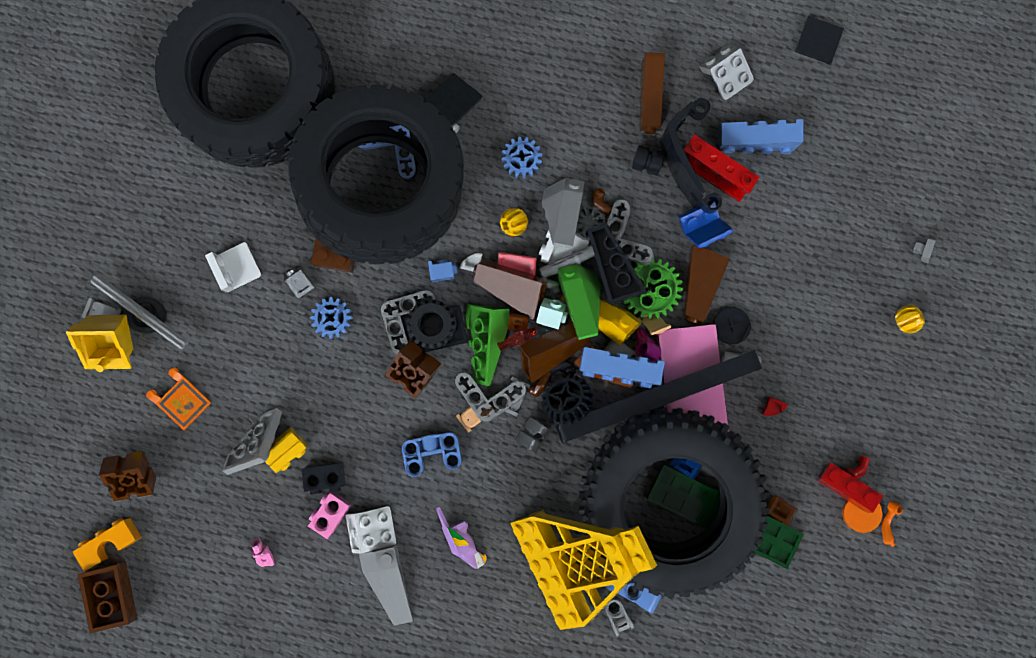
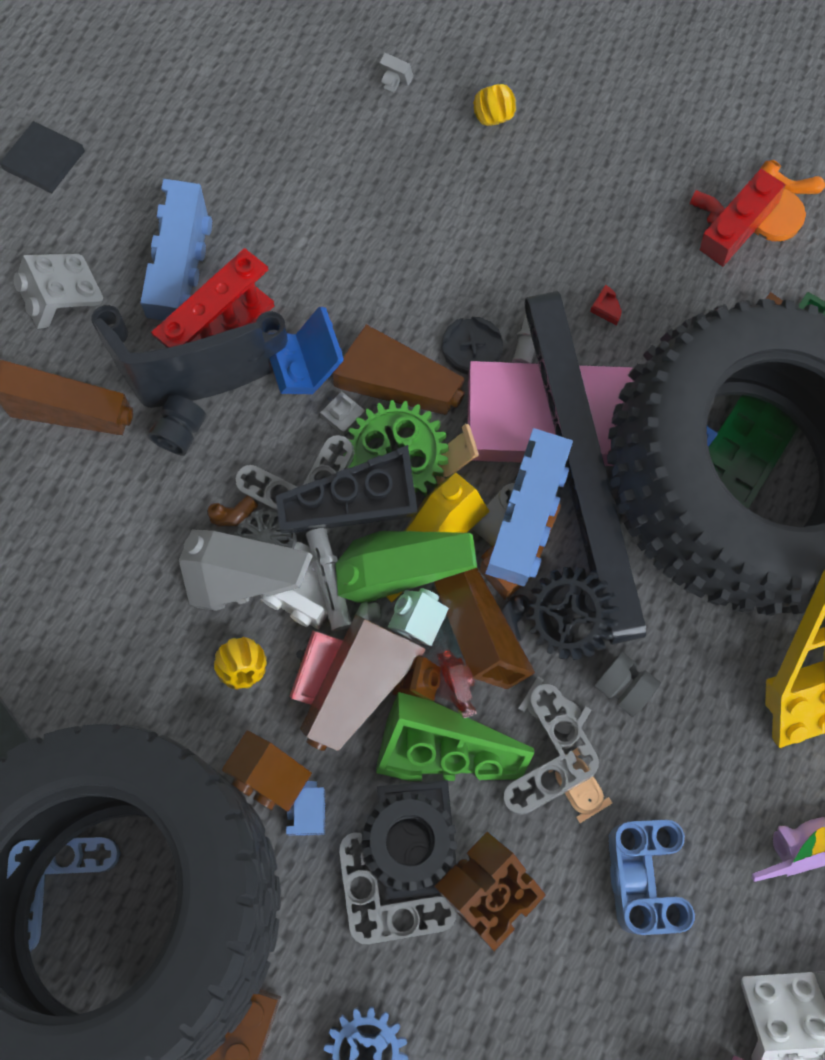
camera: 85 degrees left, 15 degrees down
(456, 244) = (267, 771): none -> reddish brown brick
(470, 262) = (300, 750): white tile -> none
(530, 156) = (109, 631): medium blue gear -> none
(542, 383) = (539, 655): reddish brown arm -> none
(646, 347) = (492, 474): magenta axle -> none
(673, 254) = (342, 413): none -> light grey tile

